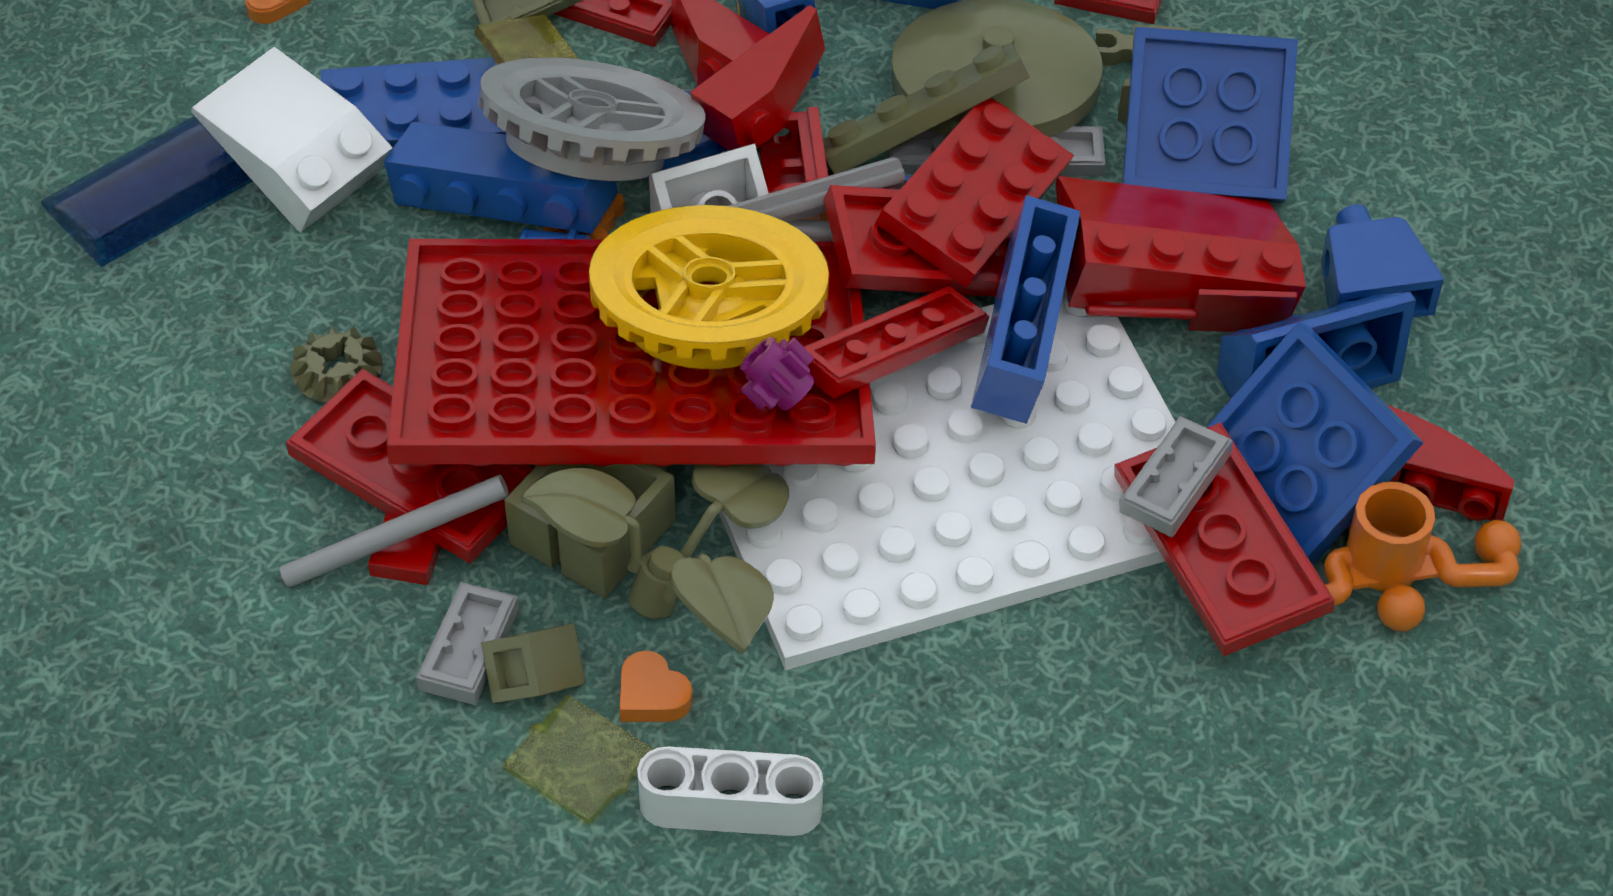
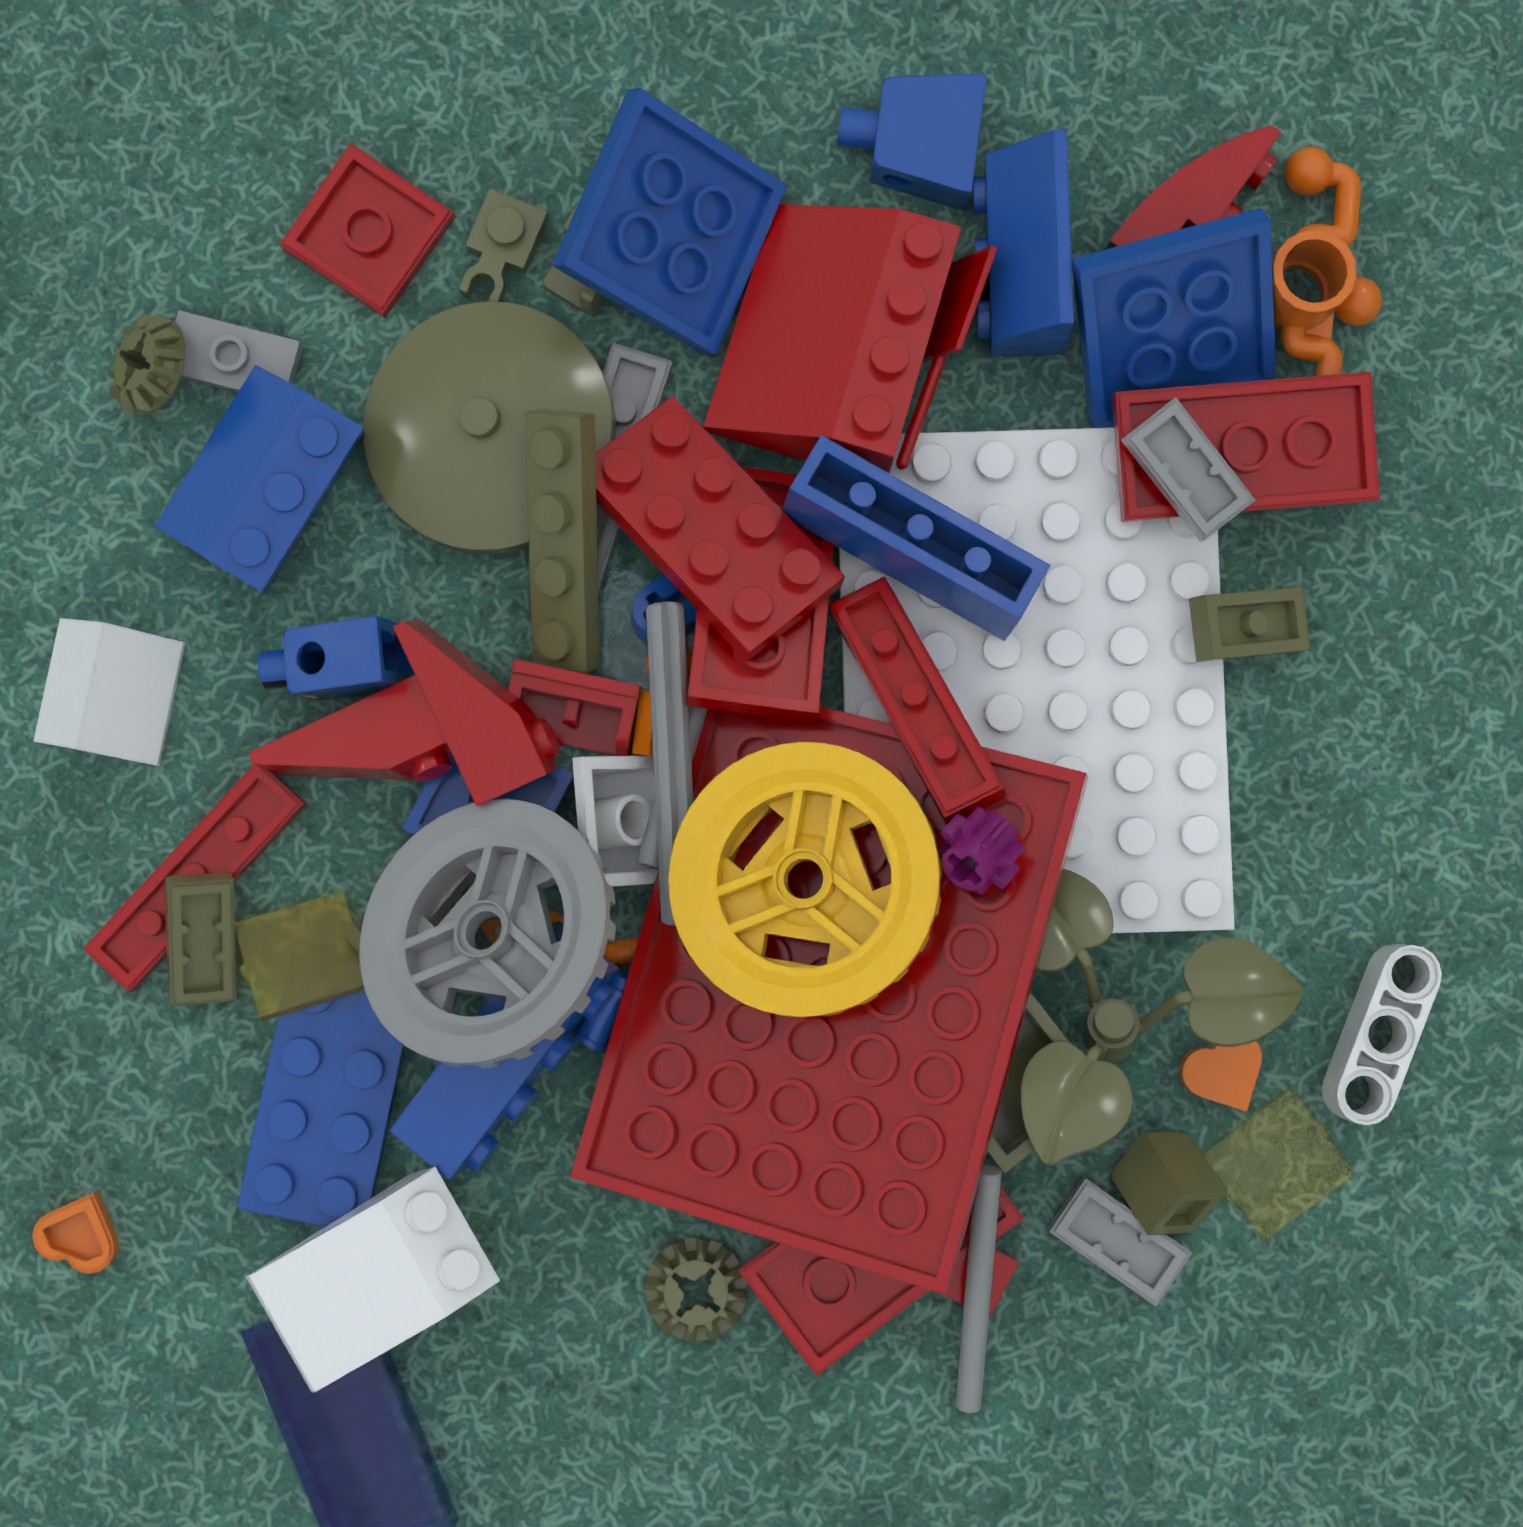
camera: 75 degrees left, 35 degrees up
(1066, 585) = (1249, 624): none -> olive plate

